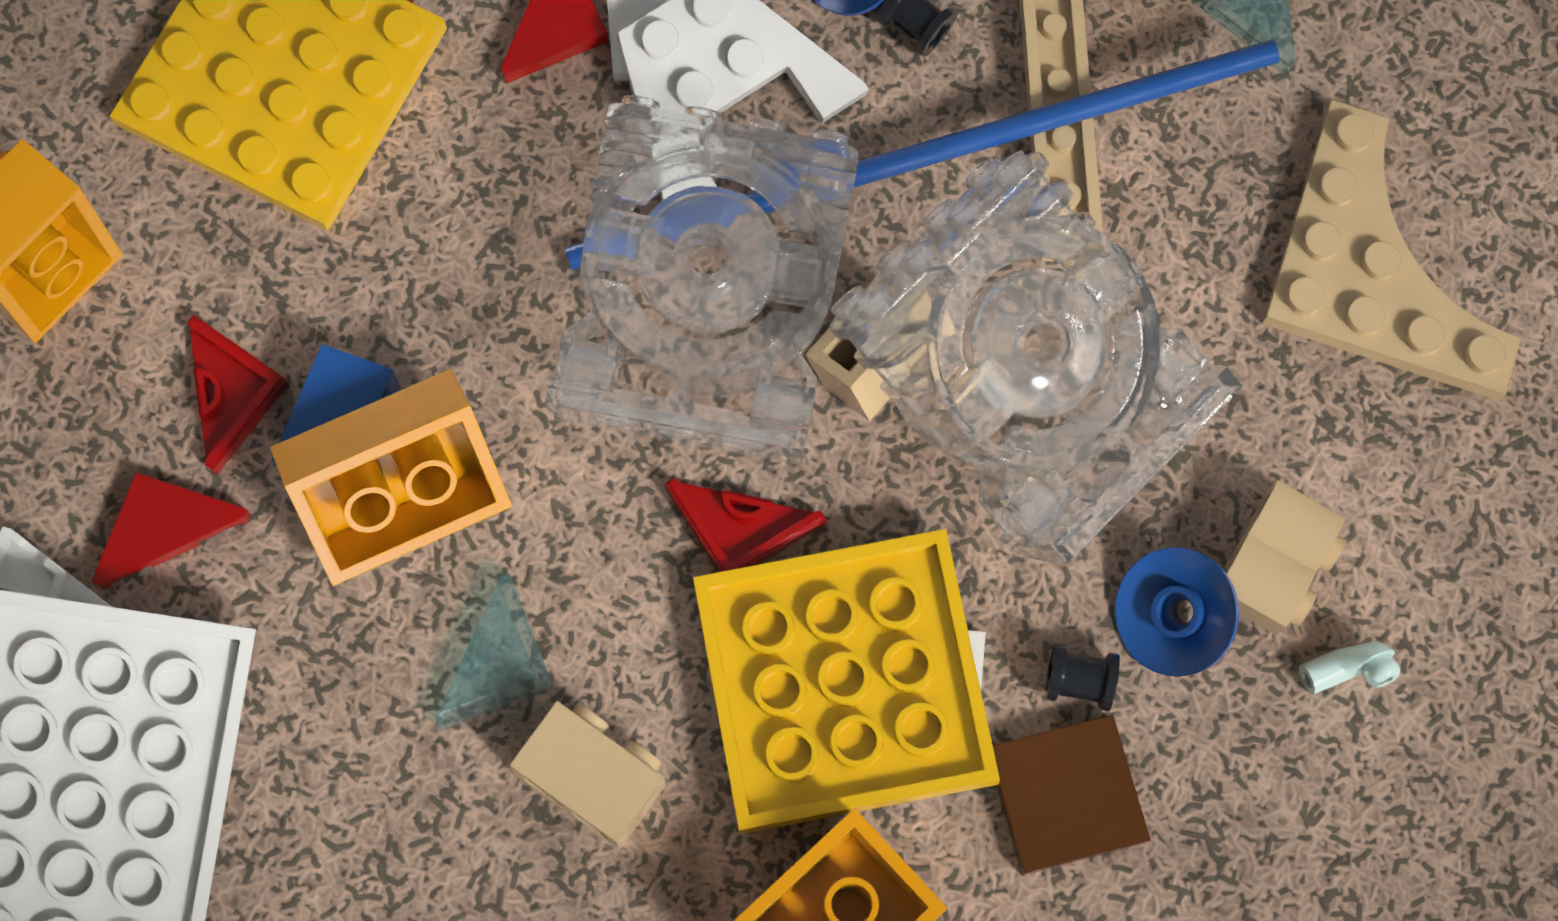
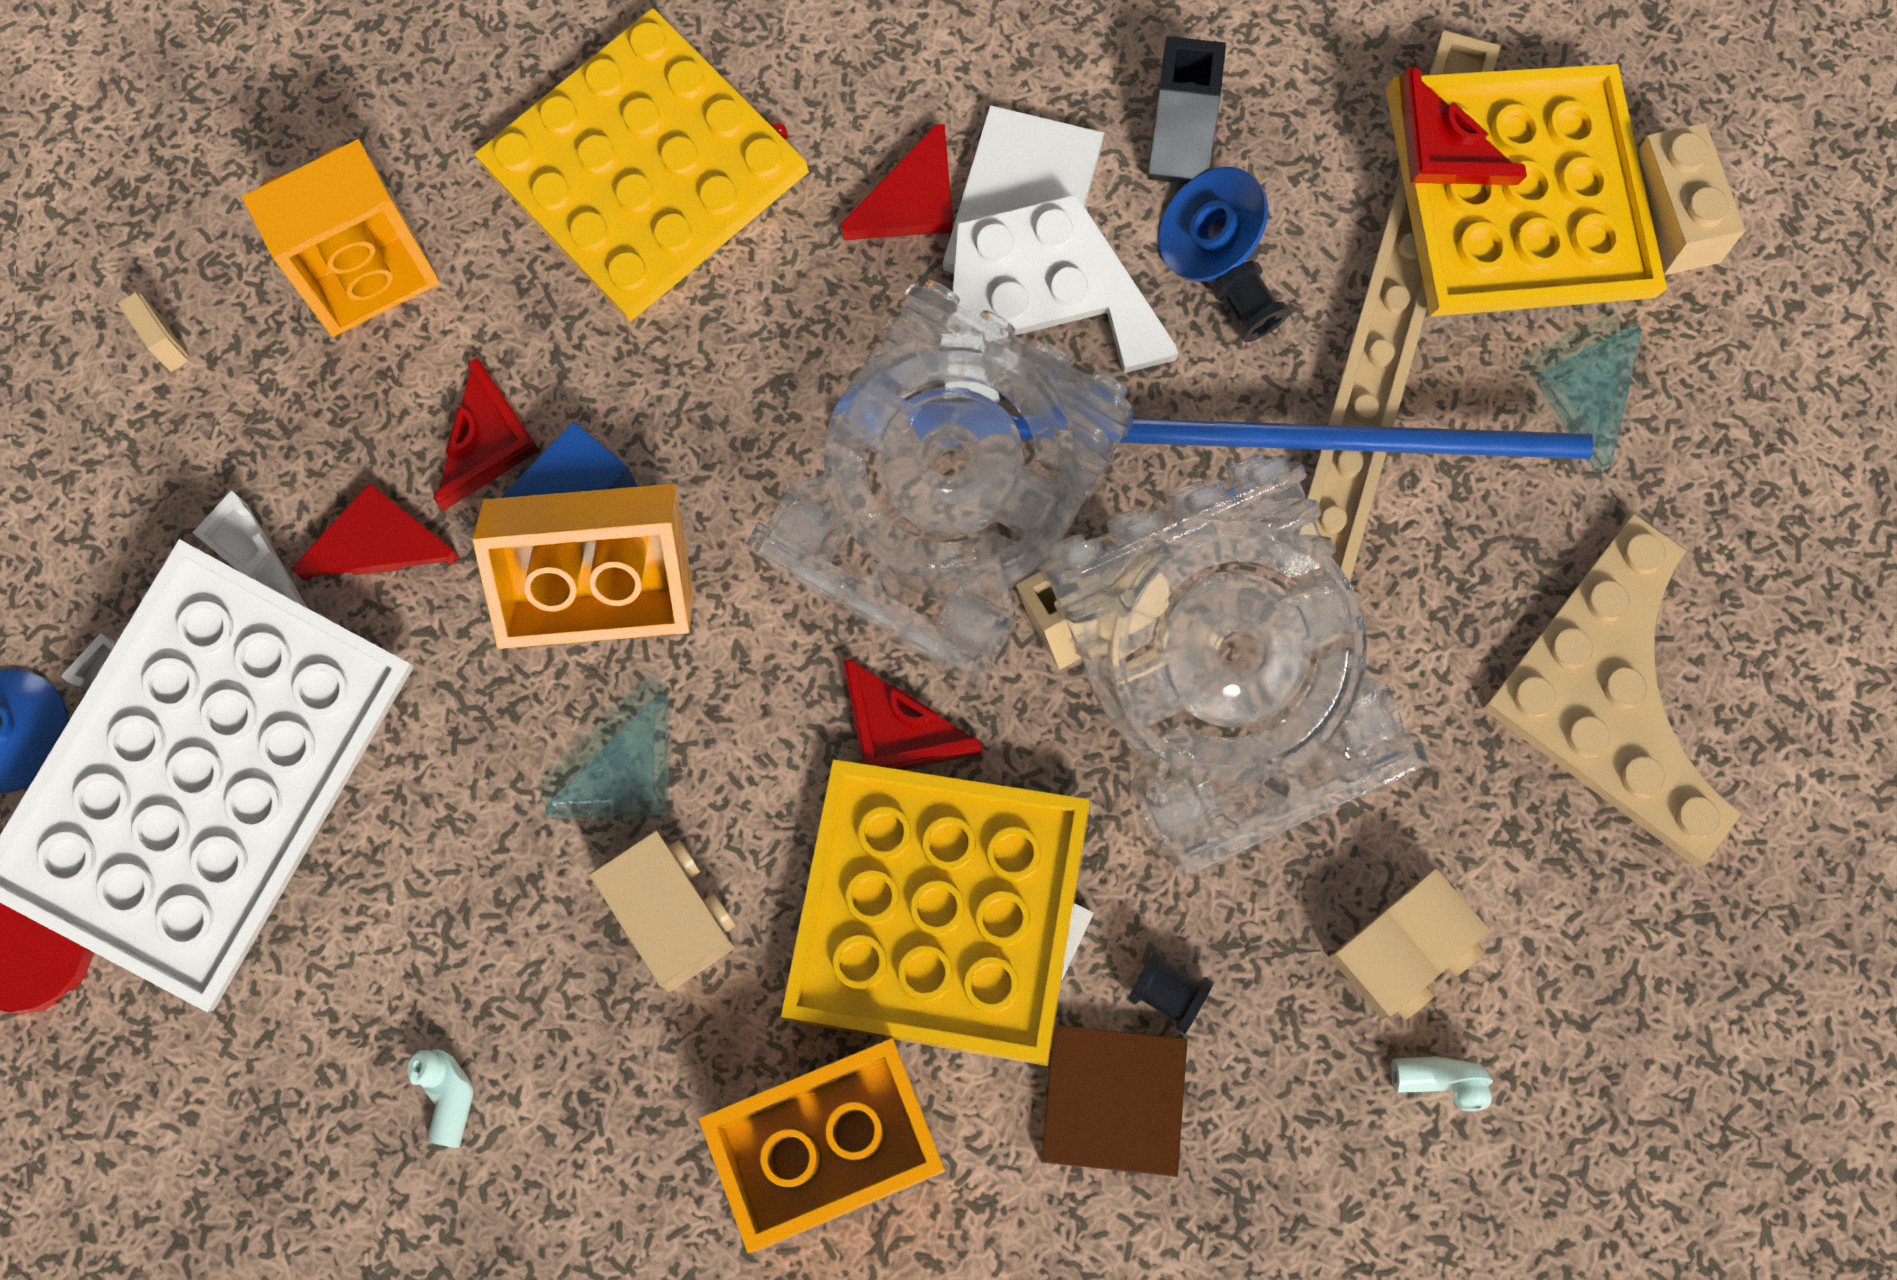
camera: 30 degrees right, 0 degrees up
(1149, 616) = (1262, 954): blue dish -> none

